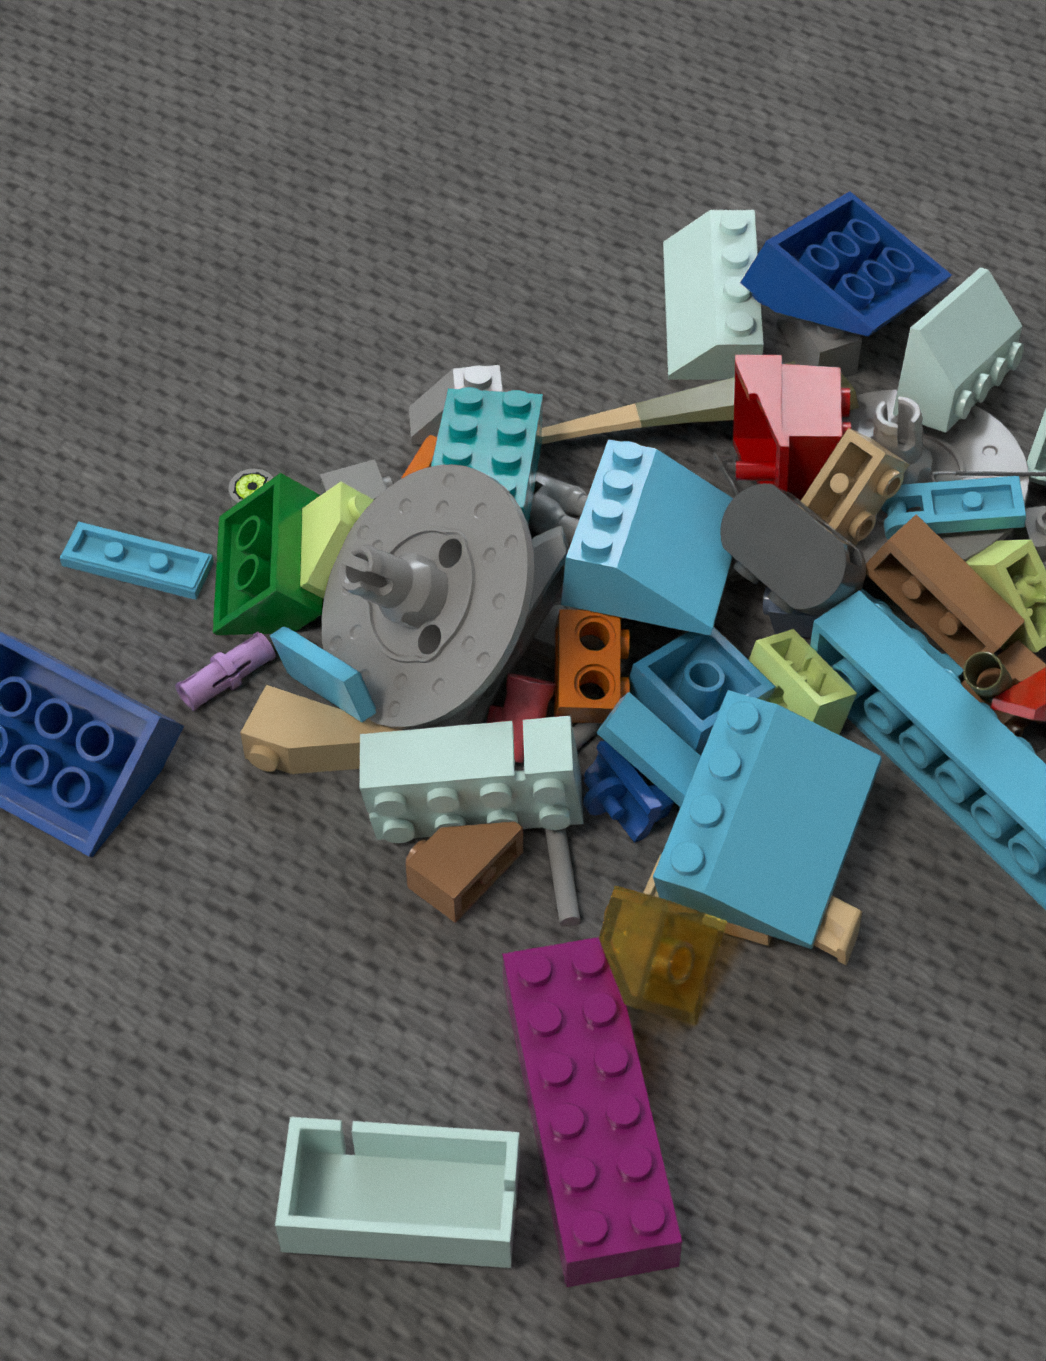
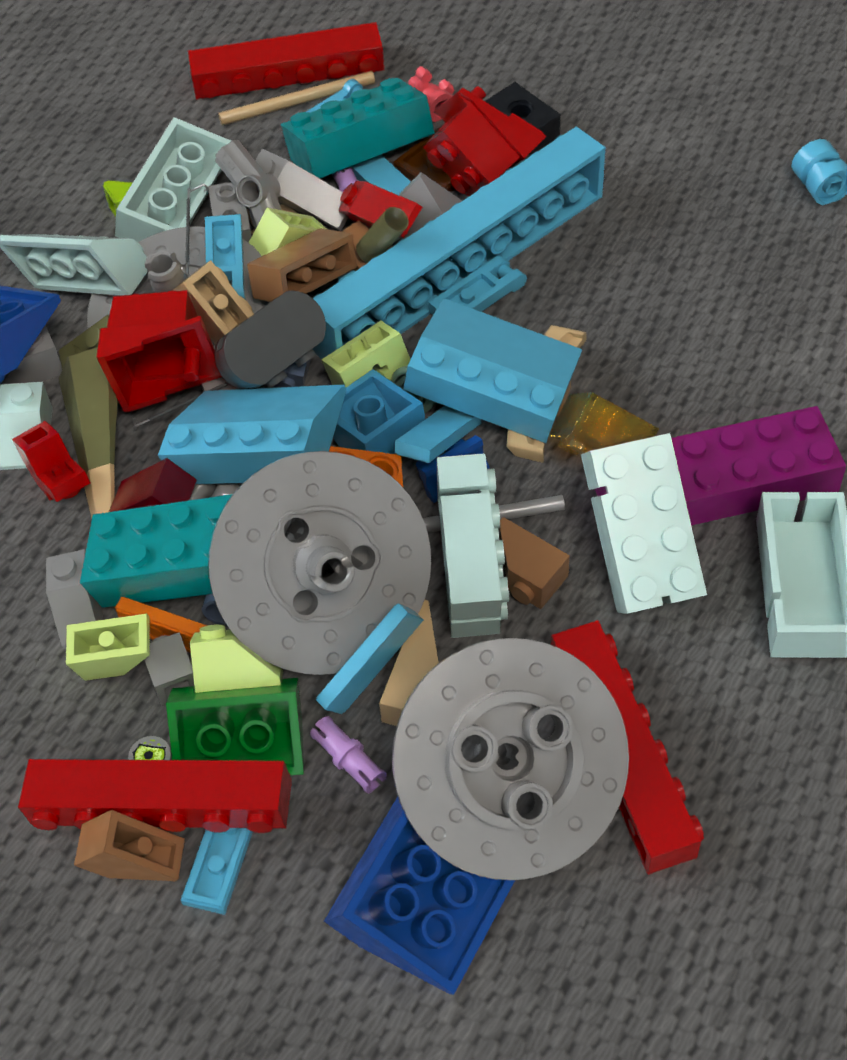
camera: 90 degrees left, 0 degrees up
(137, 473) = (128, 849): none -> medium nougat slope
(144, 789) = (469, 806): none -> light grey piece
(186, 948) = (652, 798): none -> red brick
(191, 491) = (158, 793): none -> red brick
(378, 425) = (107, 646): none -> yellowish green slope
(474, 970) = (644, 524): none -> light aqua piece
(571, 458) = (154, 486): none -> dark red brick
(657, 367) = (50, 462): none -> red brick
(948, 837) = (482, 286): none -> medium azure plate

